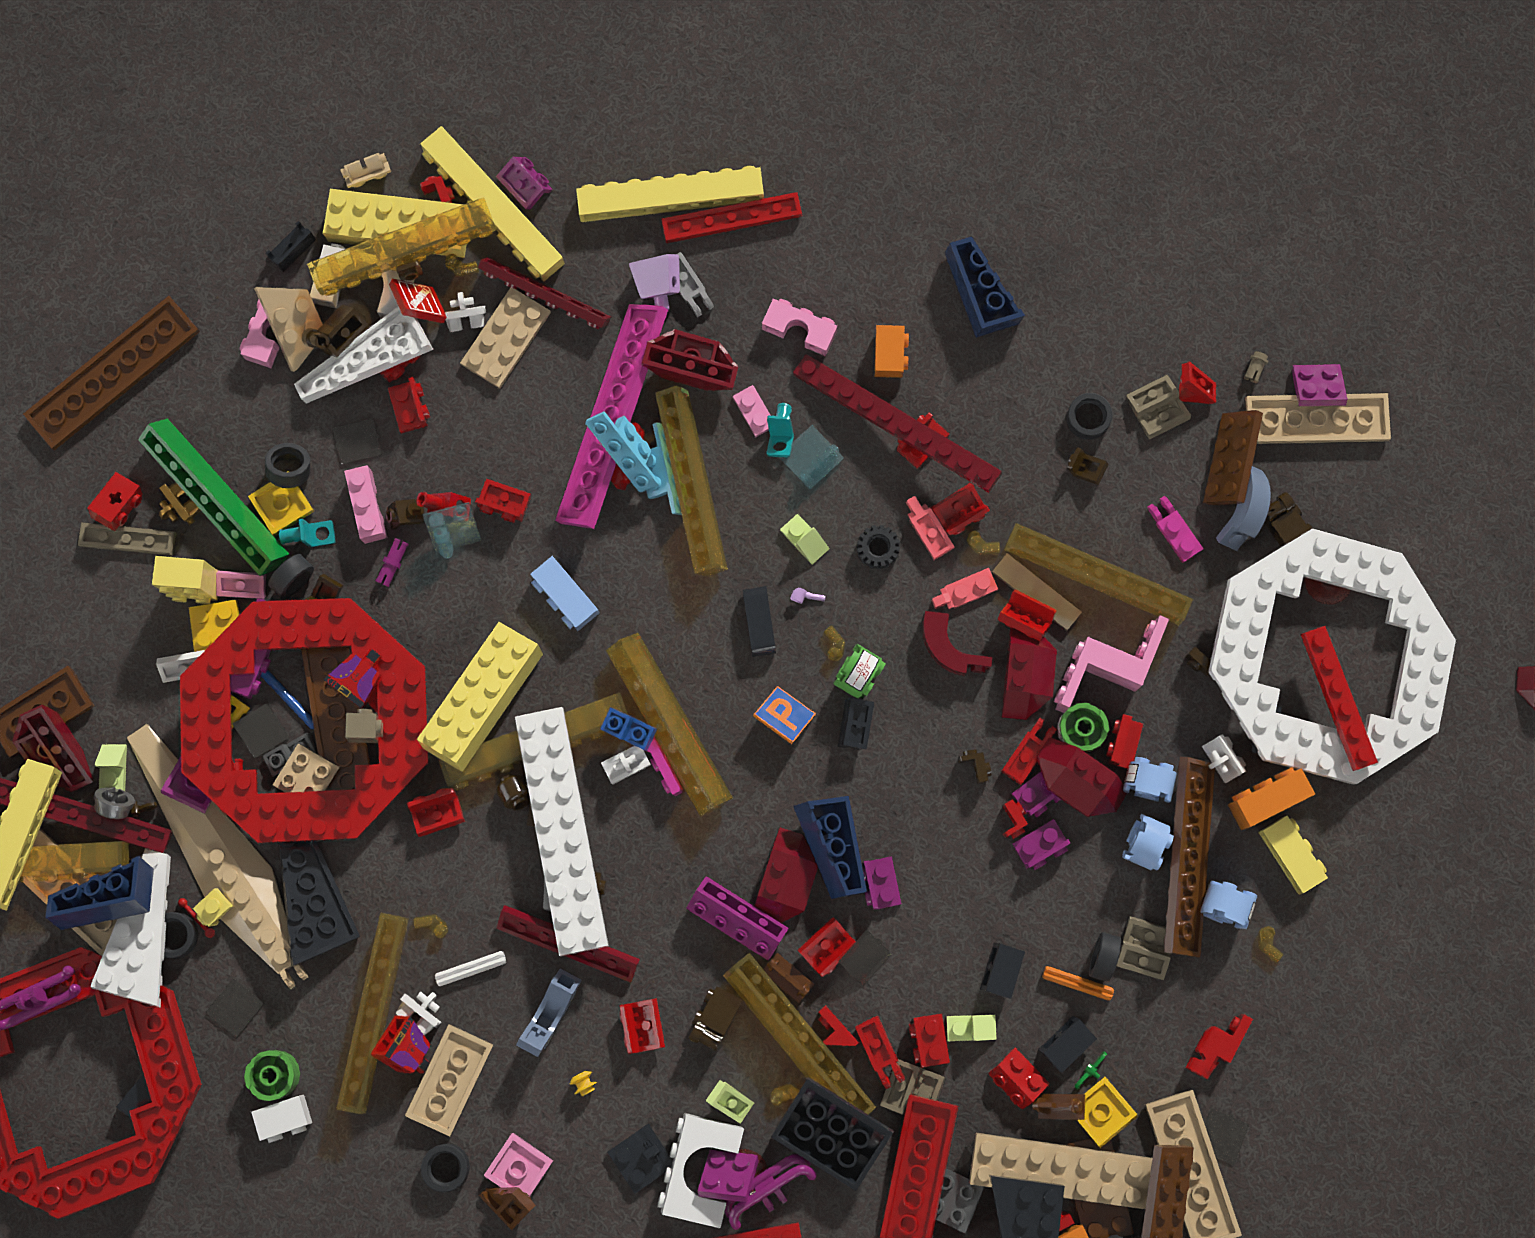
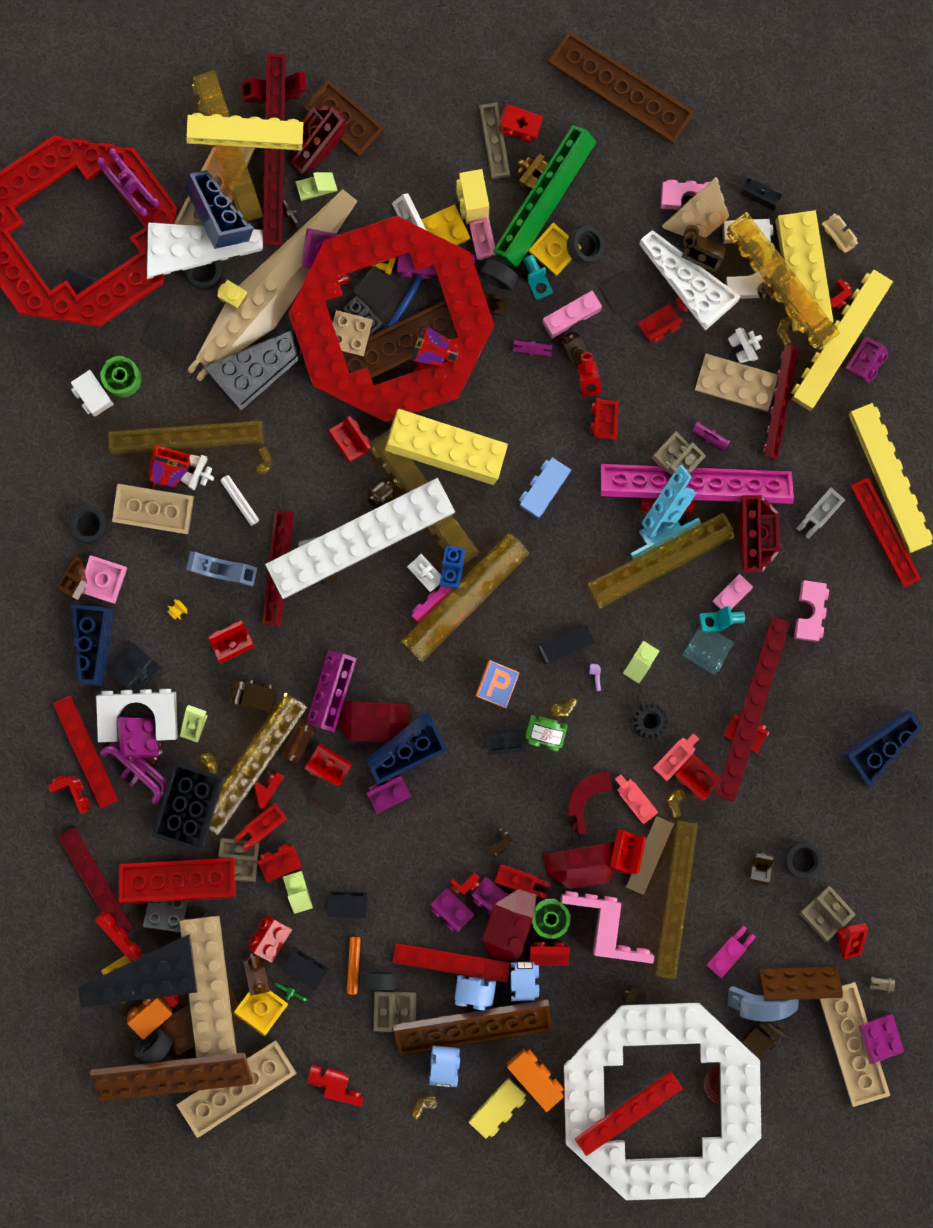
camera: 70 degrees right, 5 degrees up
(113, 803) = (289, 195): flat silver piece -> none
(209, 932) = (213, 297): red hinge -> none
(363, 727) = (396, 366): dark tan brick -> none
(417, 300) = (743, 306): red tile -> none
(451, 528) = (571, 386): clear light blue hinge -> none
(559, 384) = (710, 436): none -> magenta pin
(569, 427) = (678, 452): none -> dark tan slope
(593, 1202) = (92, 642): none -> dark blue wedge
(657, 278) = (816, 487): lavender torso -> none
(890, 351) = (810, 687): orange brick -> none
(1104, 862) = (451, 962): none -> red plate
(1224, 758) = (558, 1035): white hips -> none

